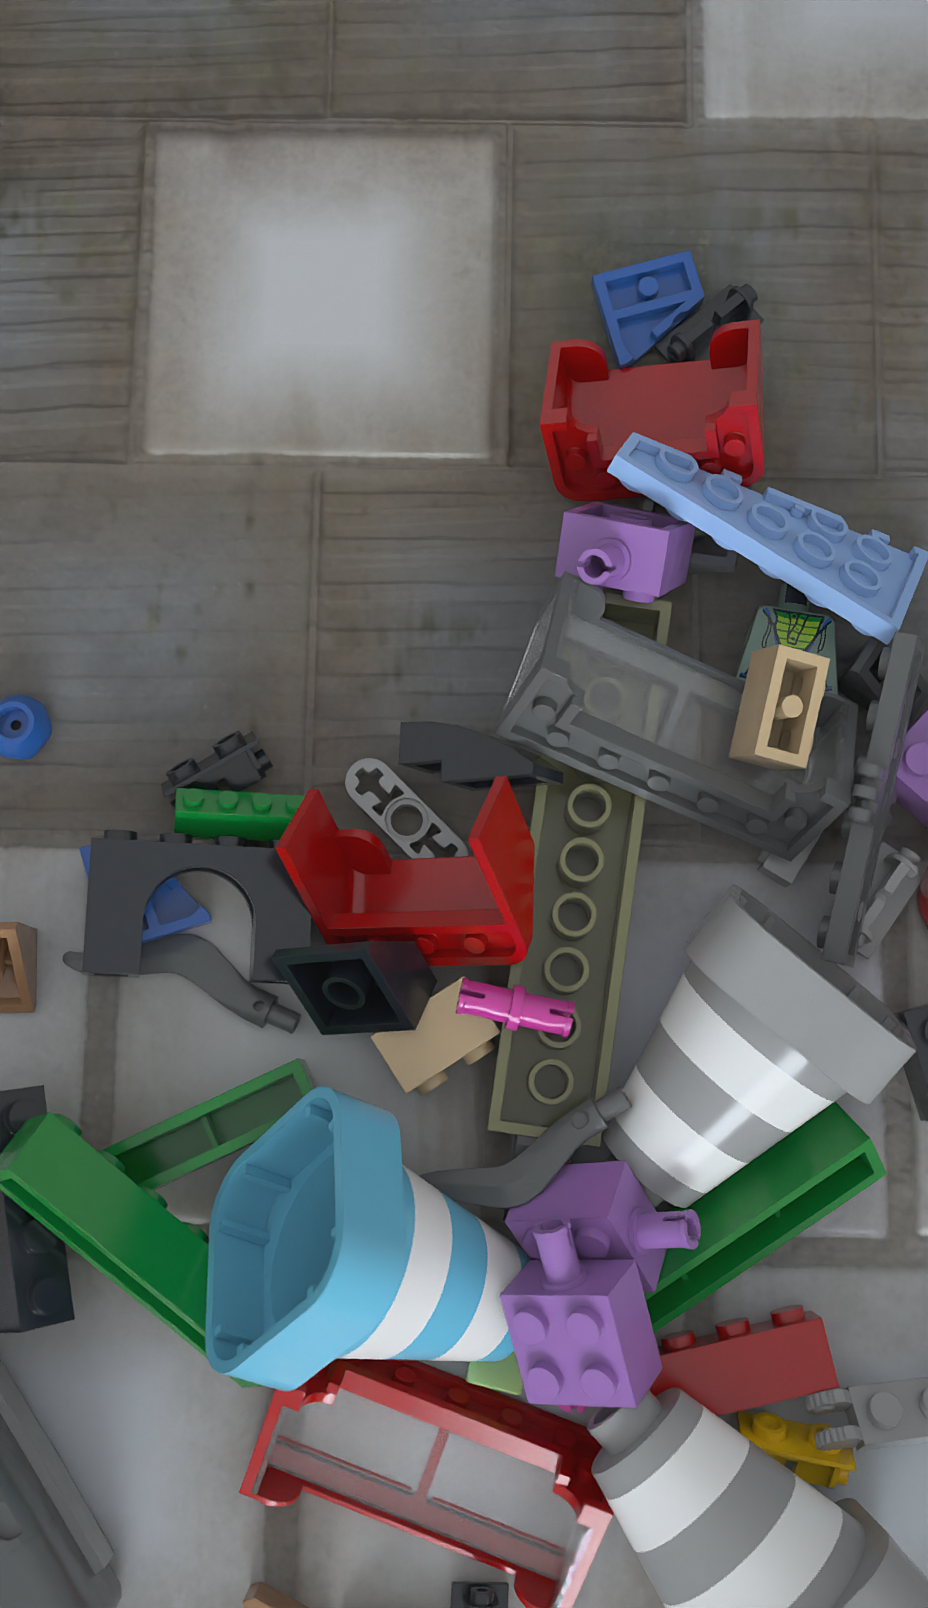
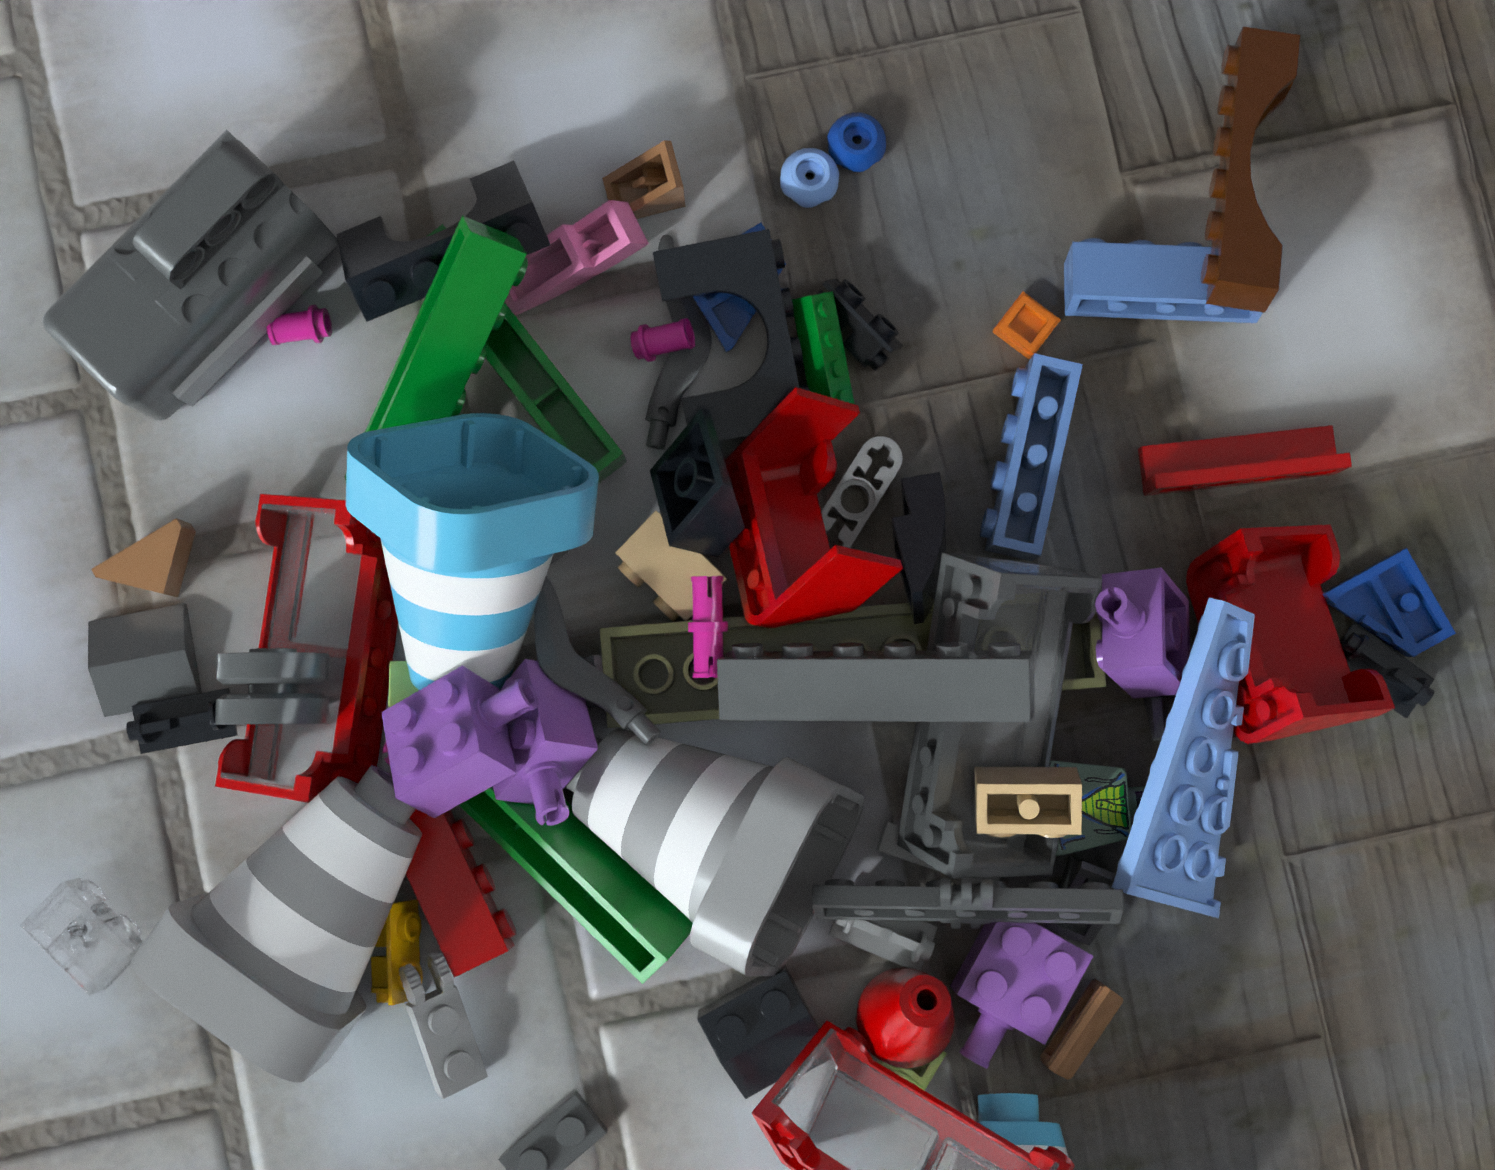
camera: 75 degrees right, 5 degrees up
(55, 1400) = (301, 326): none -> dark pink pin
(57, 794) = (804, 191): none -> light blue plate
(59, 1055) = (578, 254): none -> bright pink slope
(179, 988) = (662, 339): none -> dark pink pin
(250, 351) = (1244, 249): none -> reddish brown arch
(256, 442) = (1142, 282): none -> medium blue brick
(264, 597) = (1026, 325): none -> orange tile
(408, 621) = (1033, 457): none -> medium blue brick
(461, 417) = (1240, 460): none -> red fence
(470, 1529) = (272, 687): none -> dark grey wheel
(624, 836) = (877, 684): none -> dark grey brick

